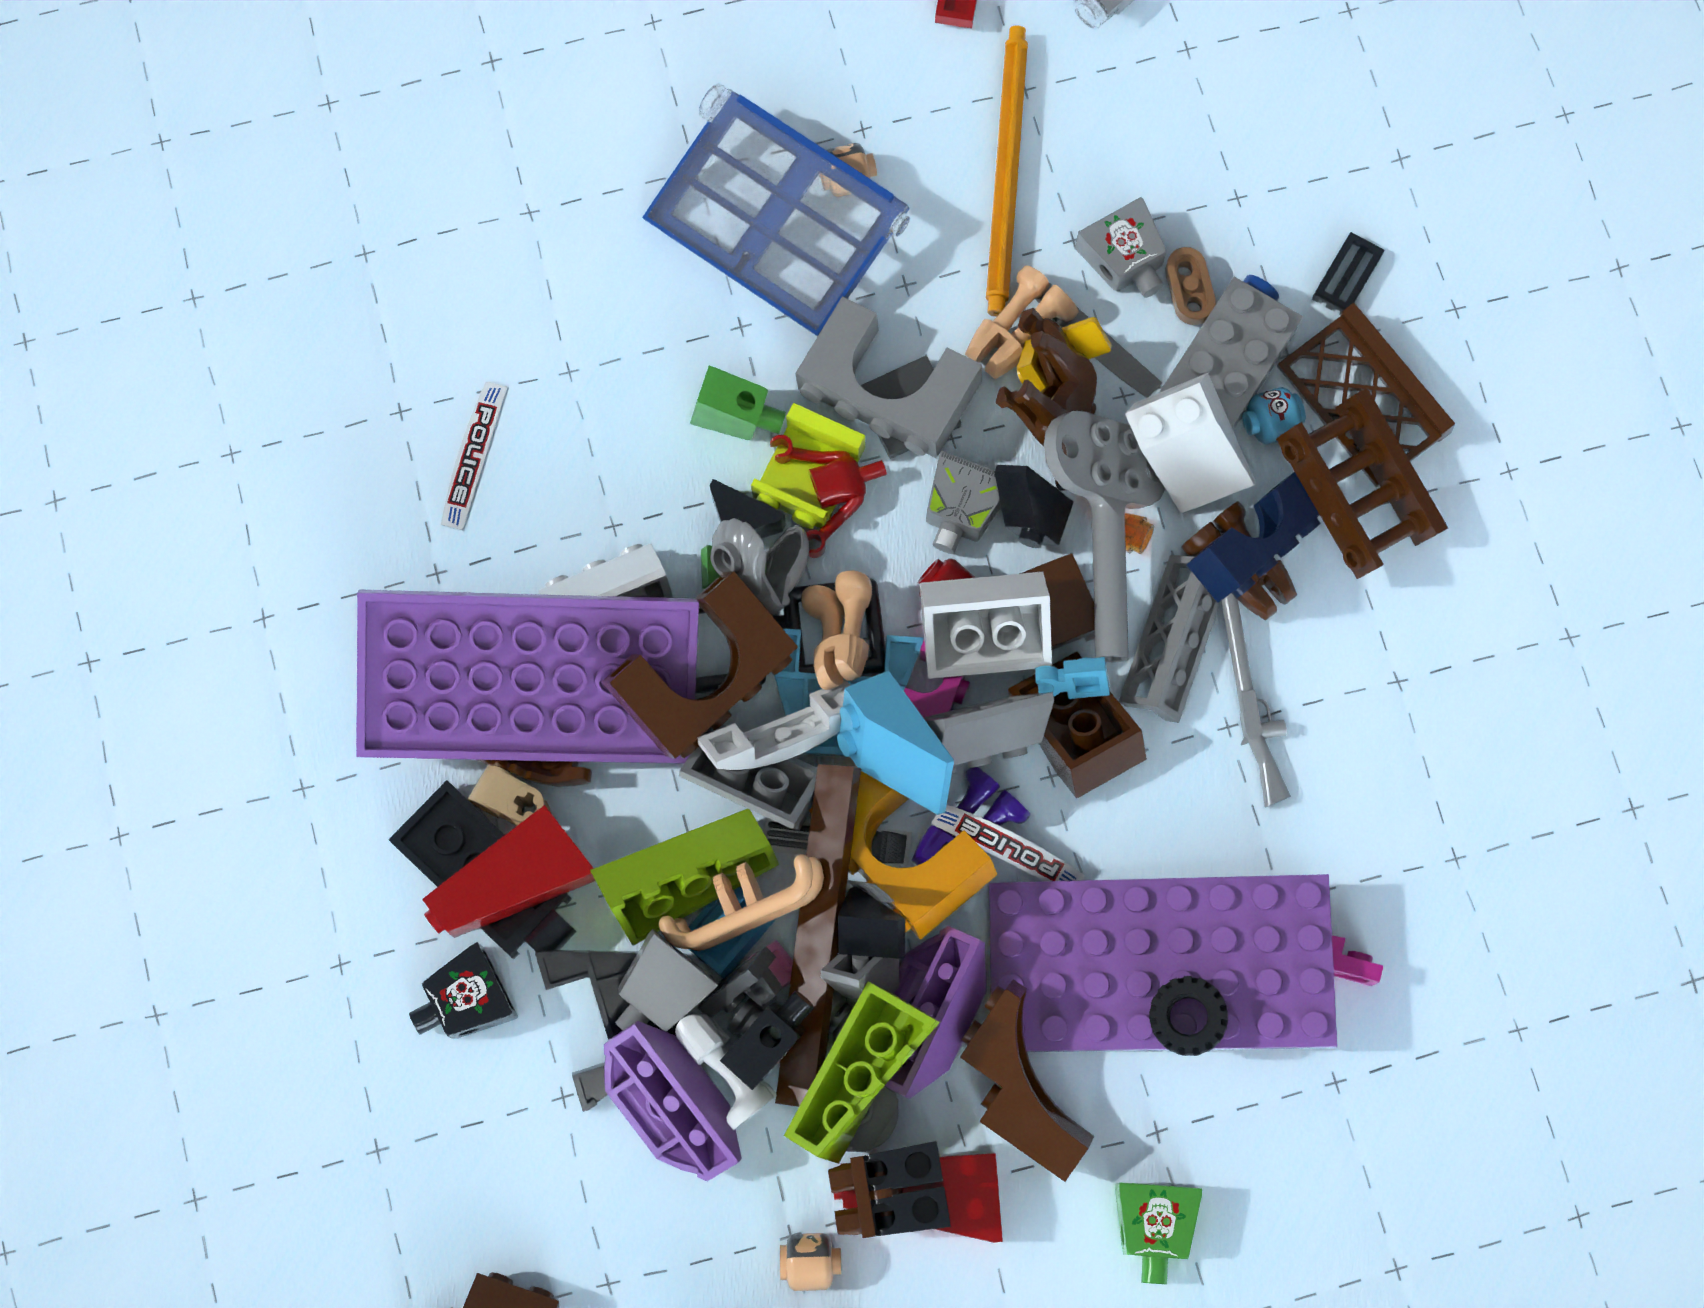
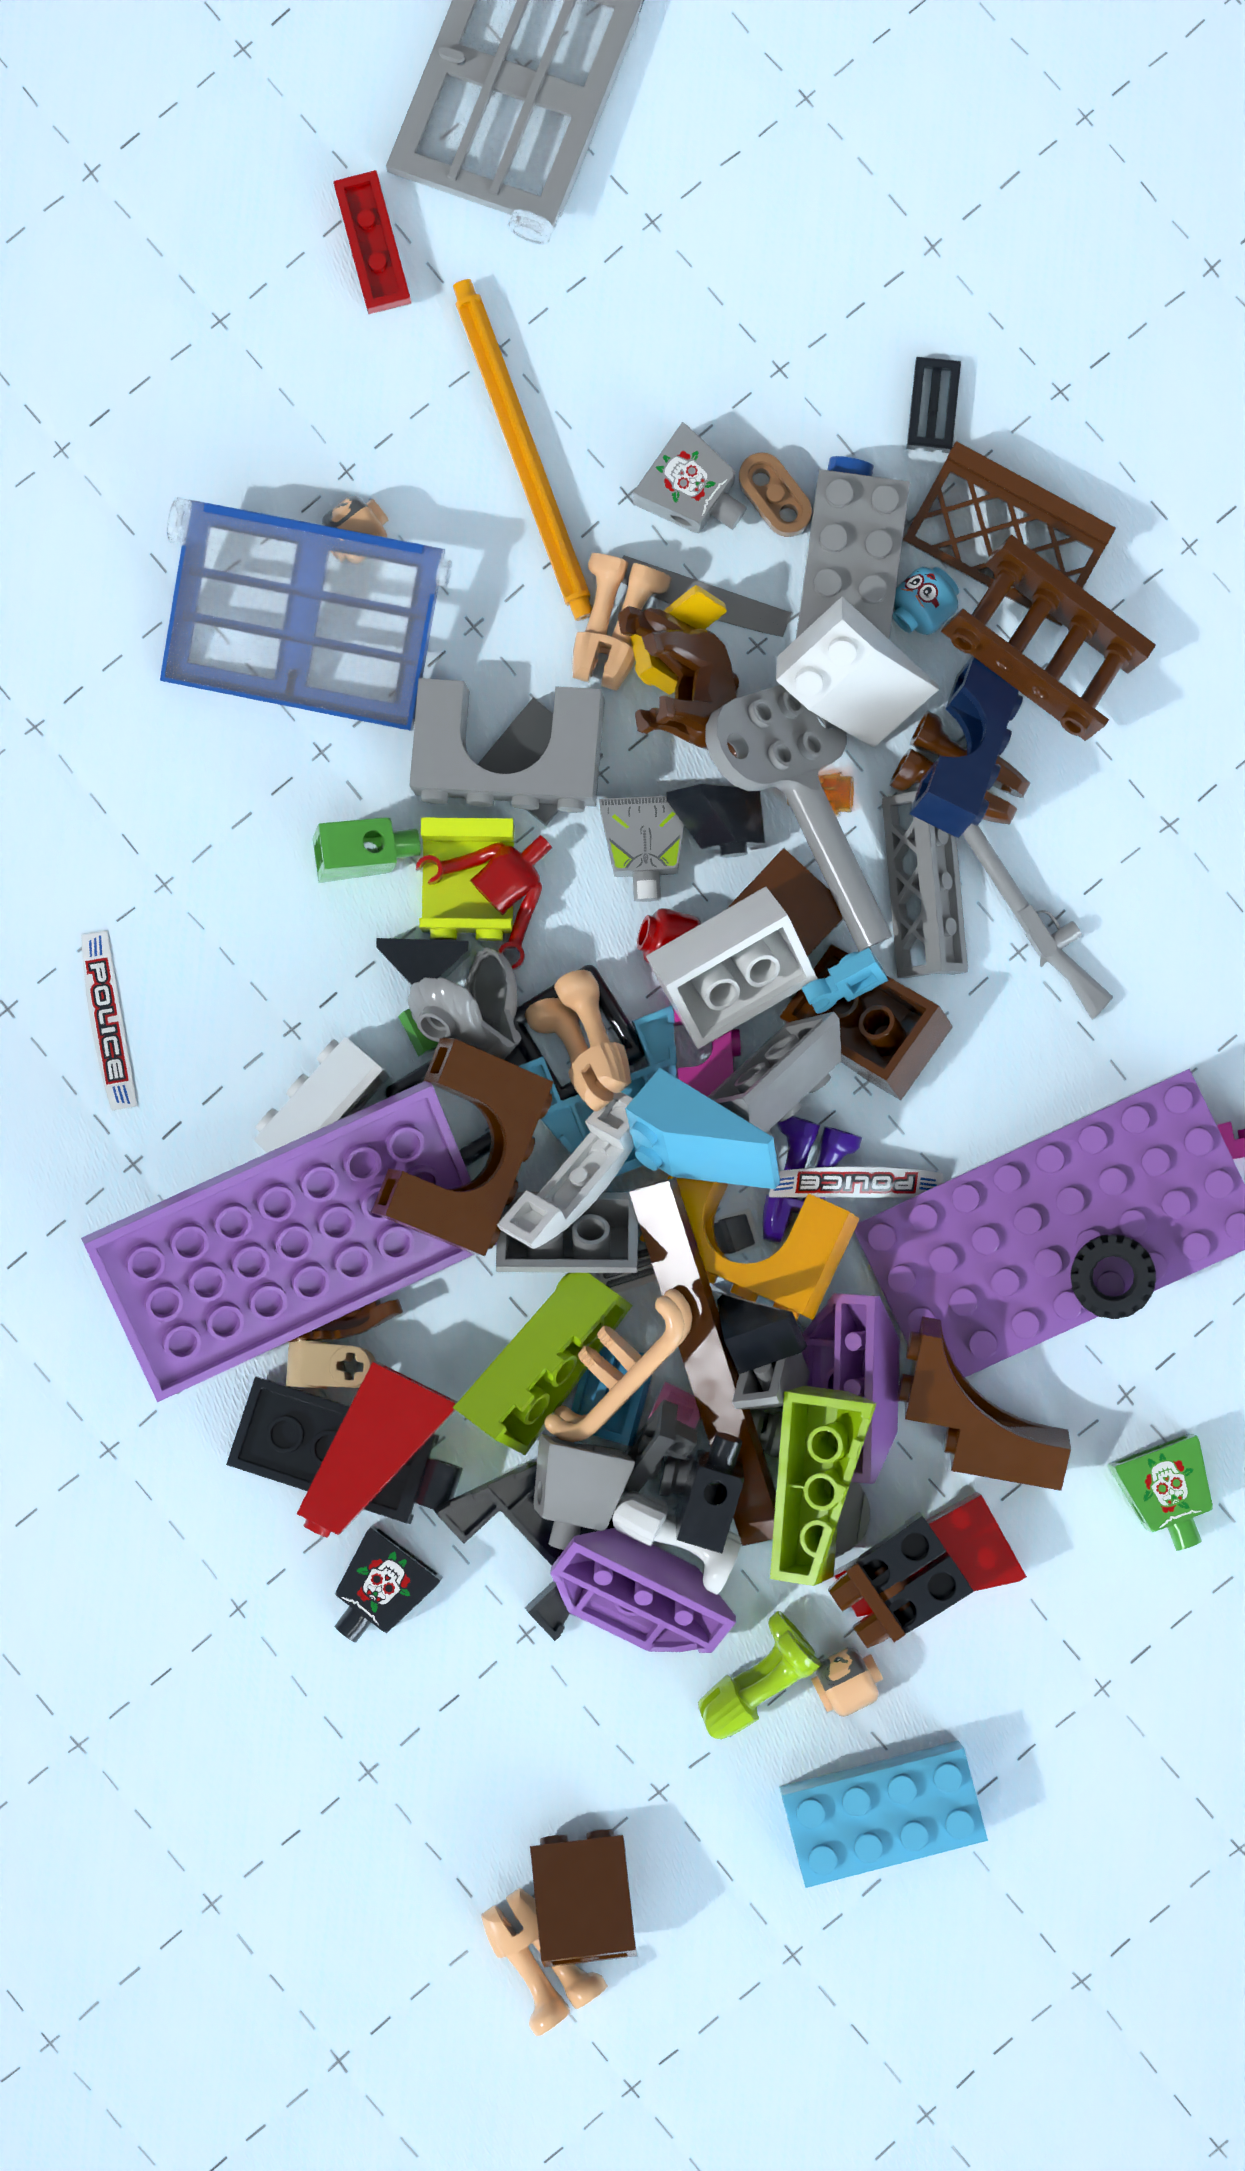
camera: 25 degrees left, 10 degrees up
(706, 1233) = (734, 1701): none -> lime piece

